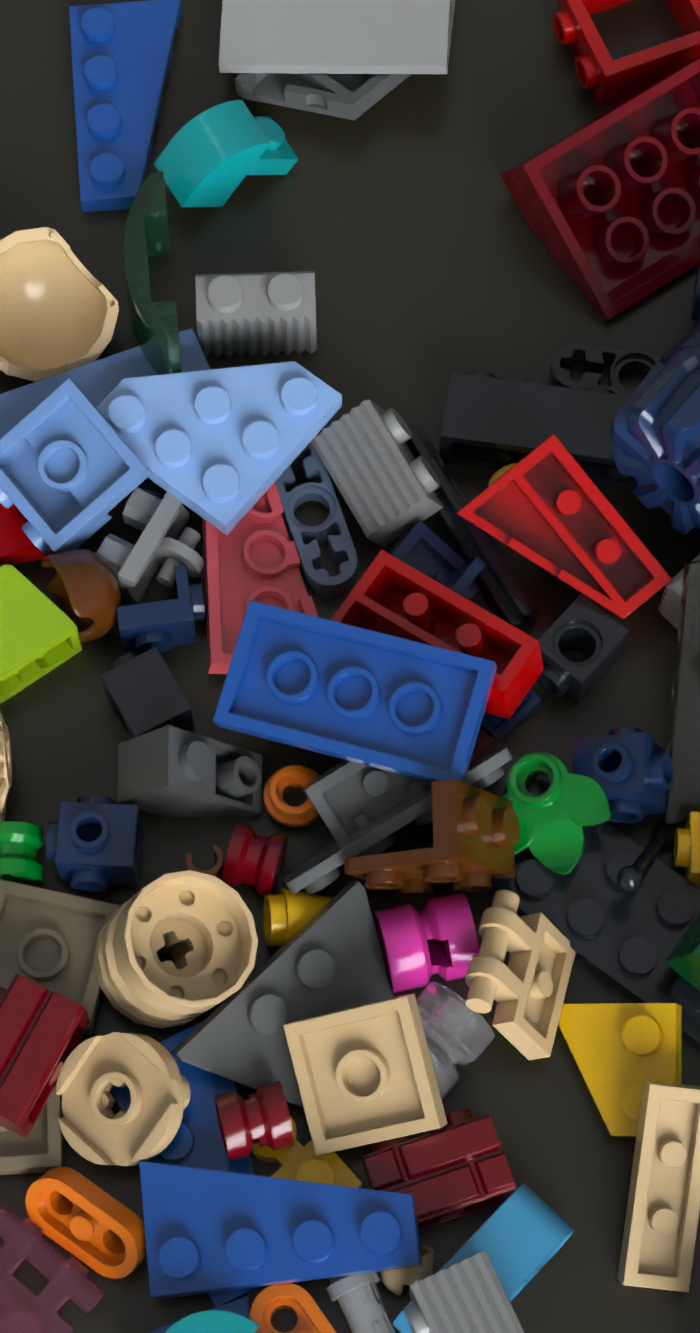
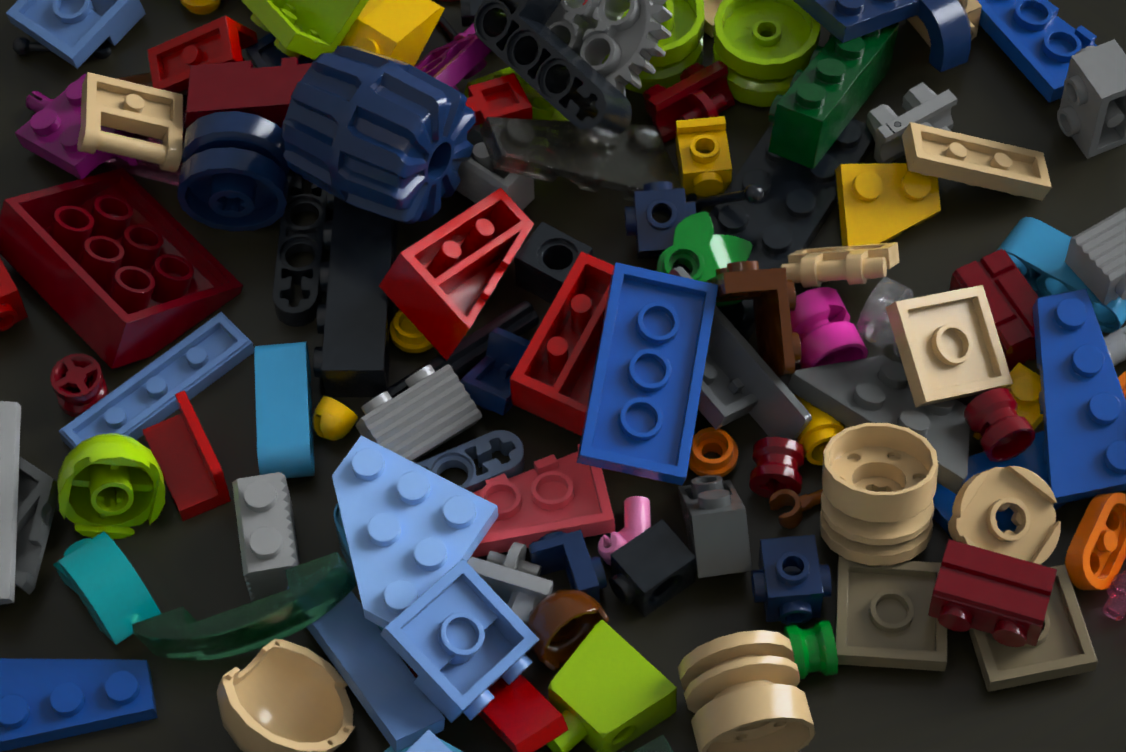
camera: 95 degrees left, 10 degrees down
(194, 681) = (636, 521): none -> bright pink arm
(347, 162) = (110, 486): none -> lime cylinder
(376, 248) = (187, 461): none -> red panel
(407, 395) = (333, 419): none -> yellow hinge
(419, 342) = (284, 410): none -> dark azure beam
(478, 227) = (151, 392): none -> medium blue tile
(494, 132) = (82, 373): none -> dark red wheel

